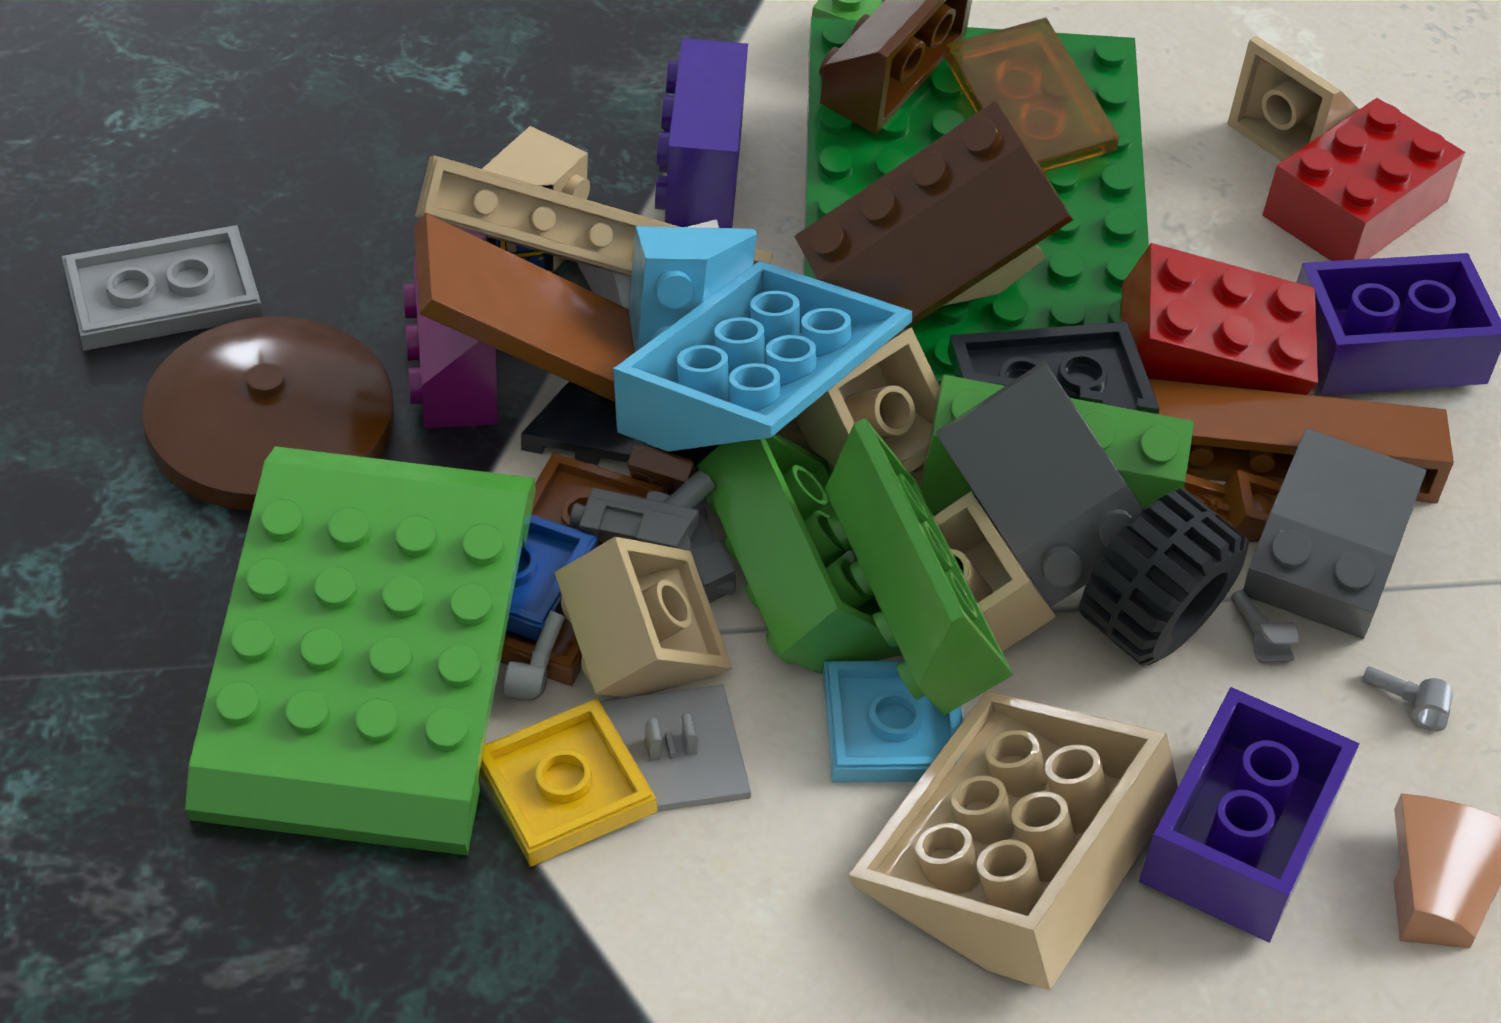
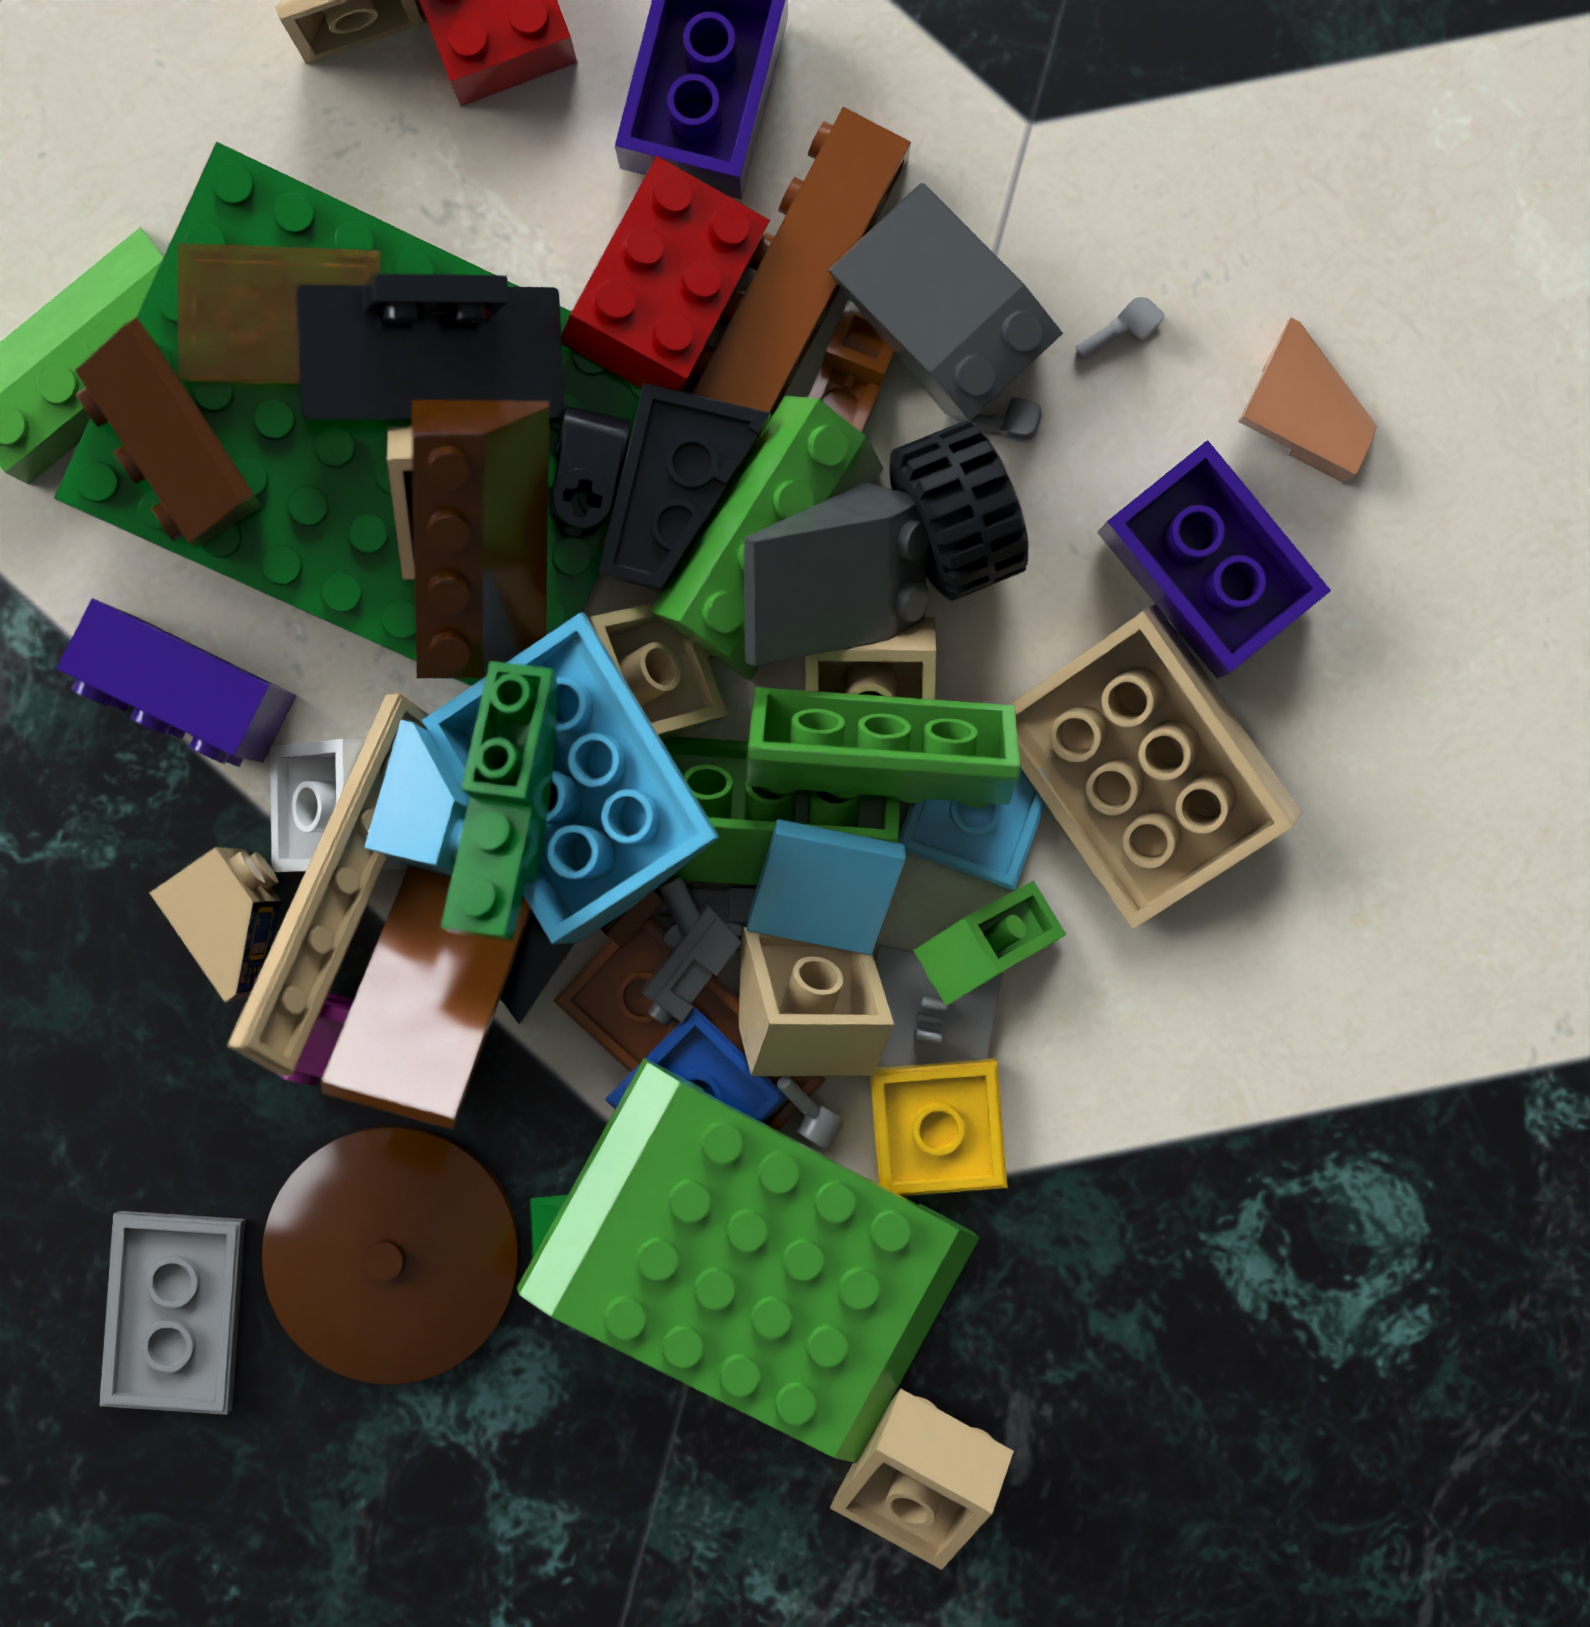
camera: 65 degrees left, 40 degrees up
(188, 866) = (924, 1480): none -> tan slope
(743, 296) = (508, 801): none -> green slope
(761, 582) = (825, 887): none -> medium azure tile
(774, 750) = (989, 942): none -> bright green slope
(1028, 306) = (587, 461): none -> black piece
(1093, 174) = (425, 339): none -> black bracket

